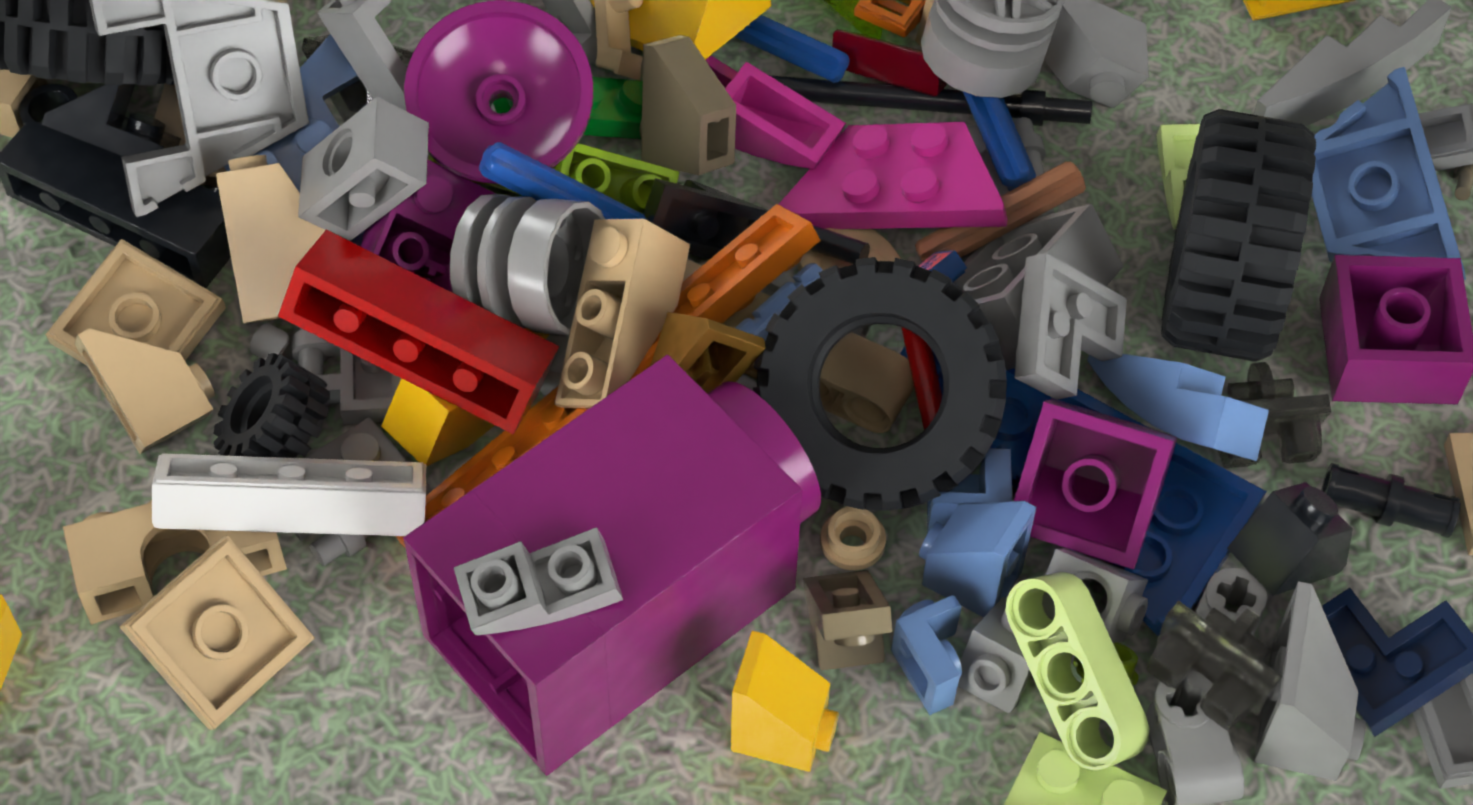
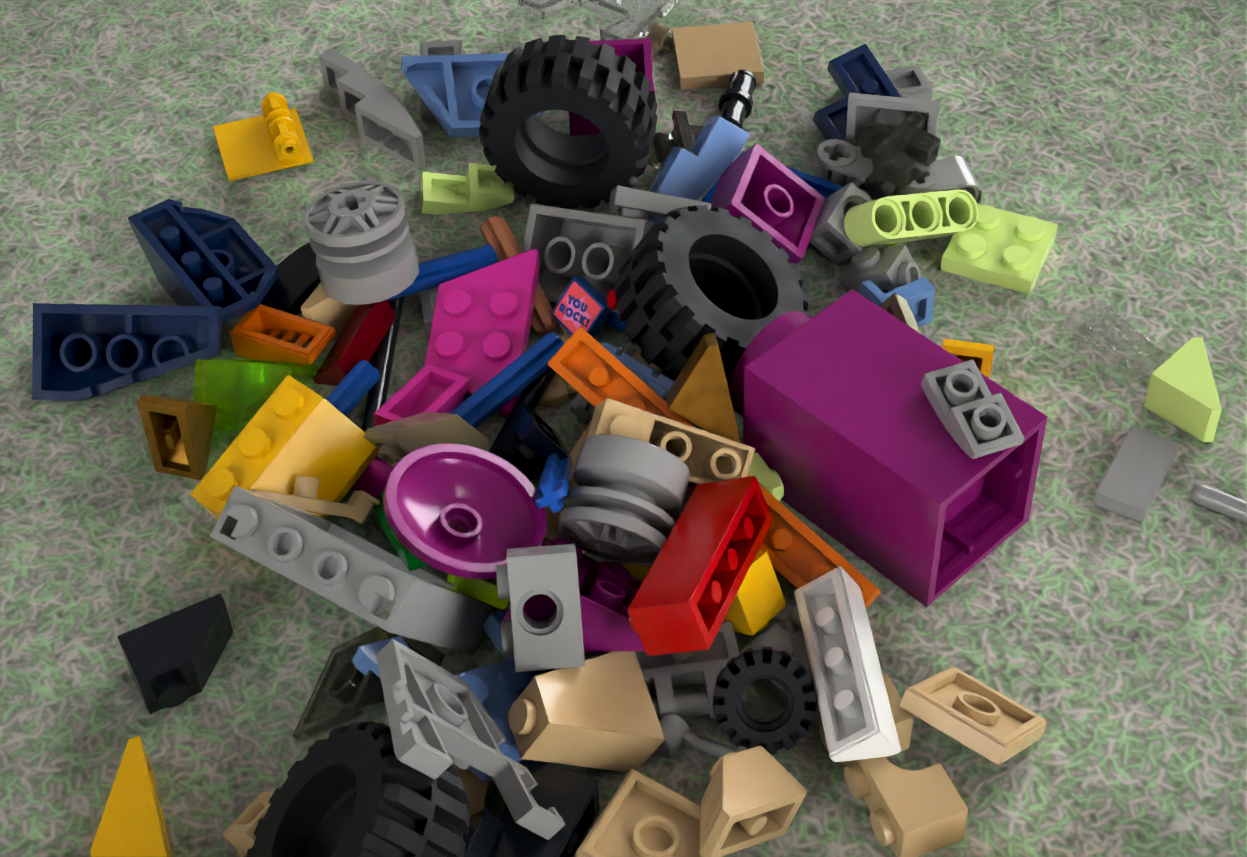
camera: 90 degrees left, 10 degrees down
(795, 194) = (509, 381): none -> blue axle
(978, 552) = (826, 260): medium blue slope -> none
(1293, 539) = (793, 121): black slope -> none

